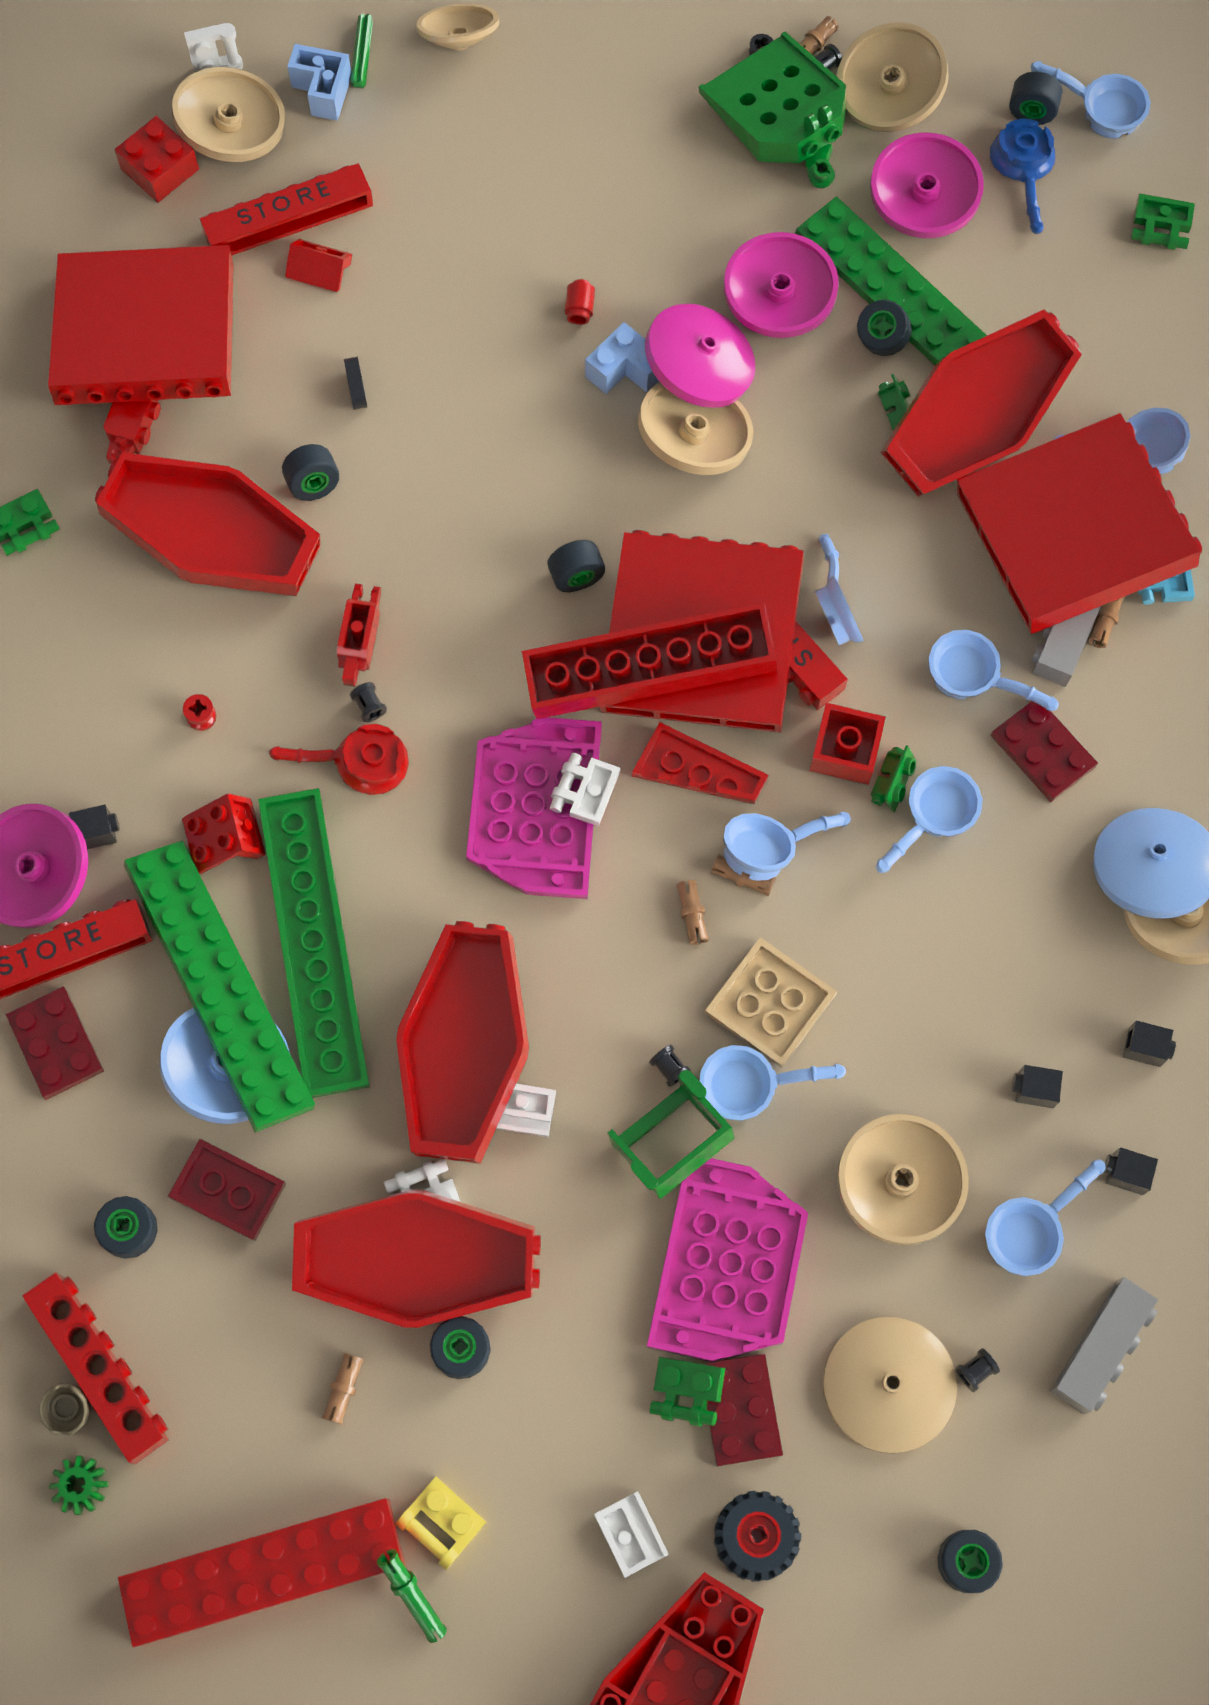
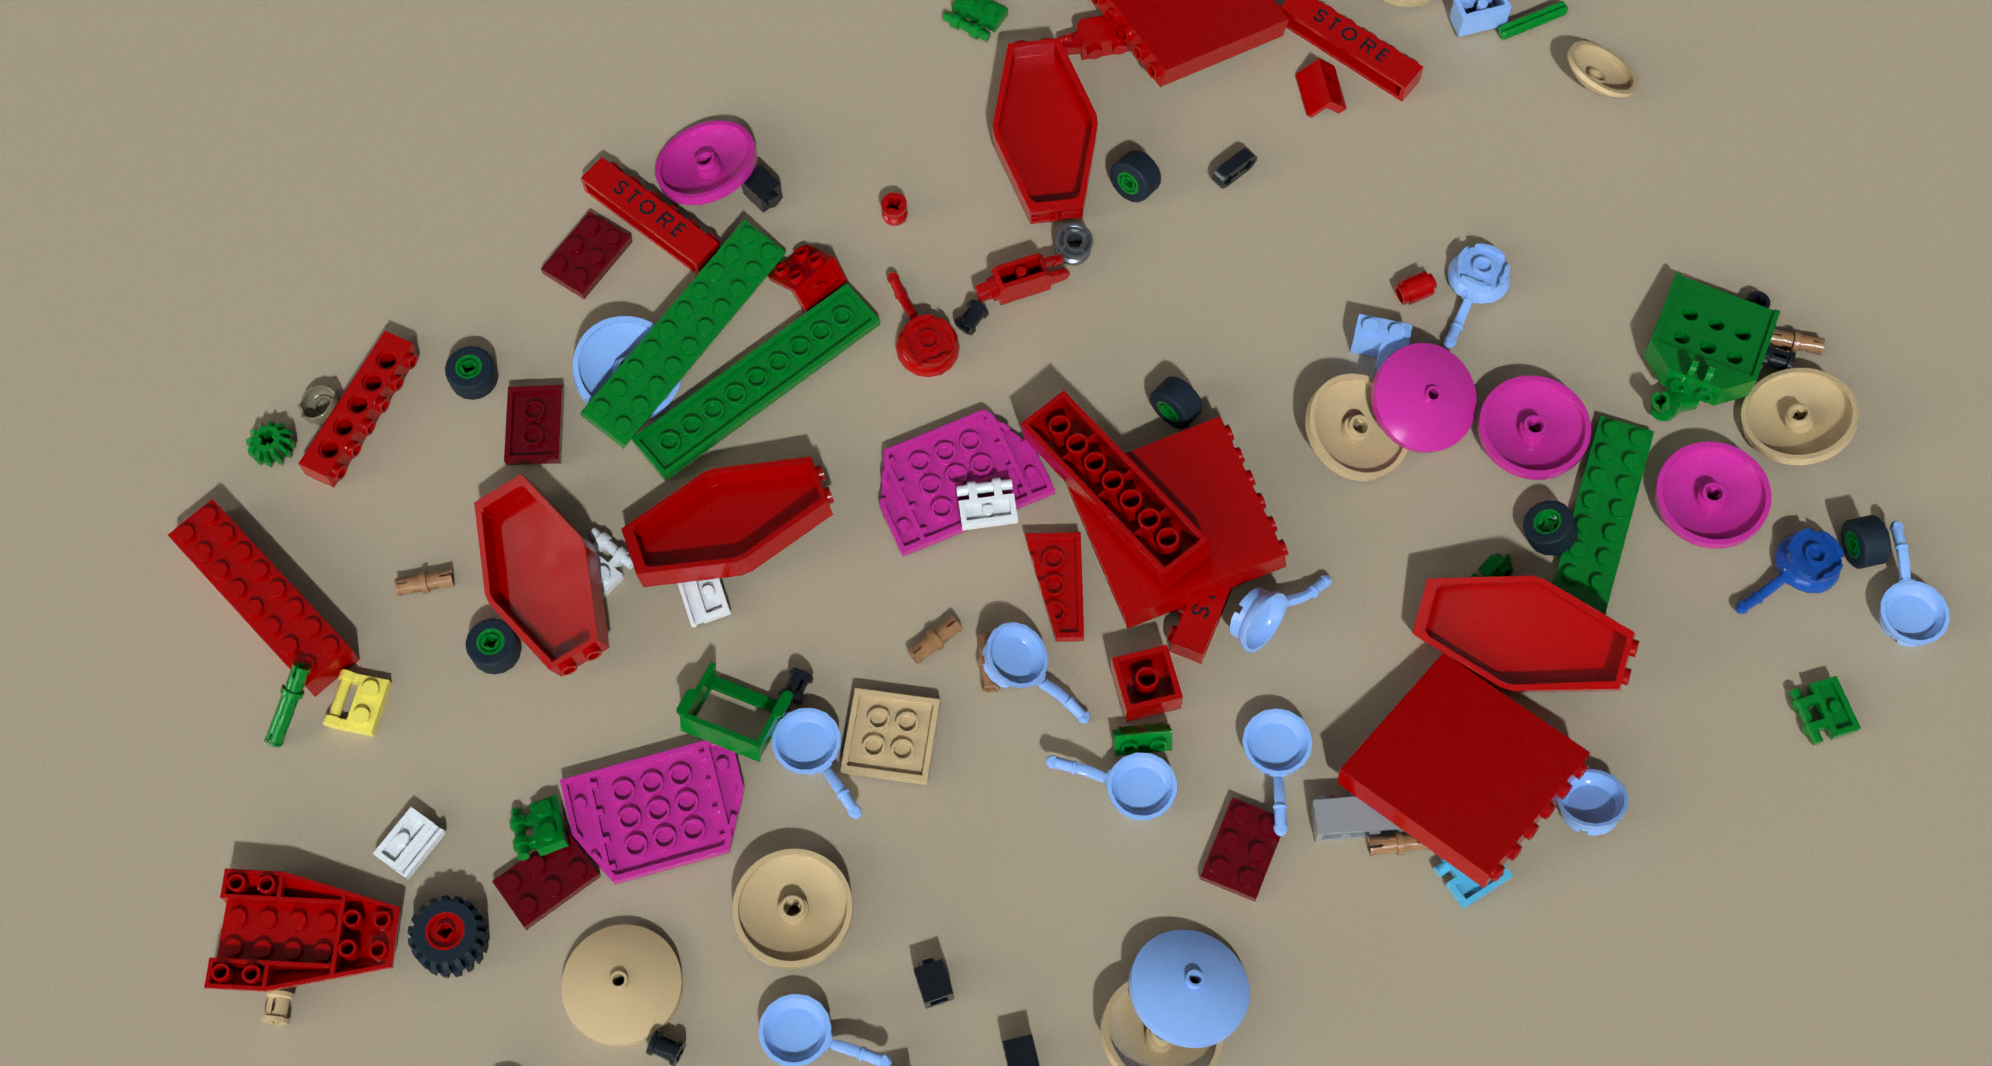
camera: 65 degrees right, 5 degrees down
(346, 555) = (1077, 233): none -> flat silver wheel
(602, 245) = (1478, 277): none -> light blue piece

